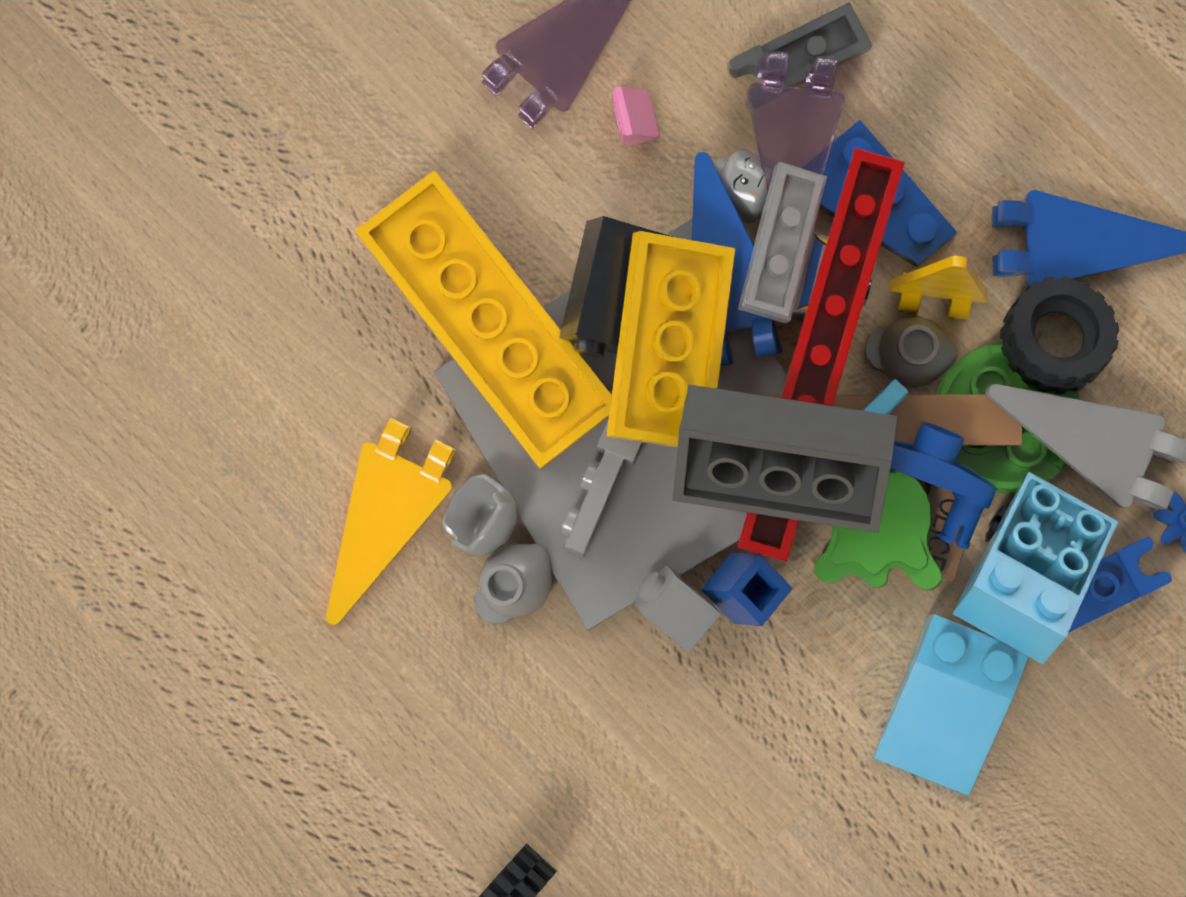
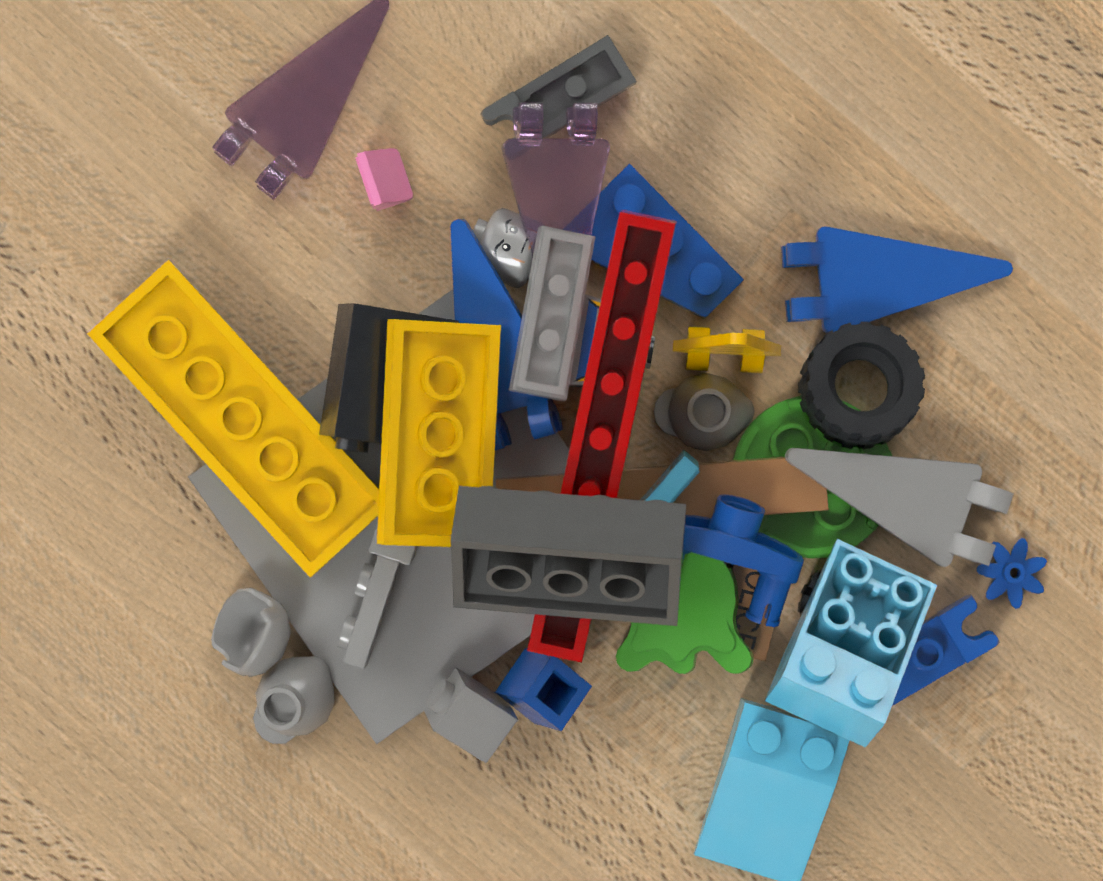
camera: 10 degrees left, 5 degrees up
(384, 512) = (148, 633): yellow flag -> none

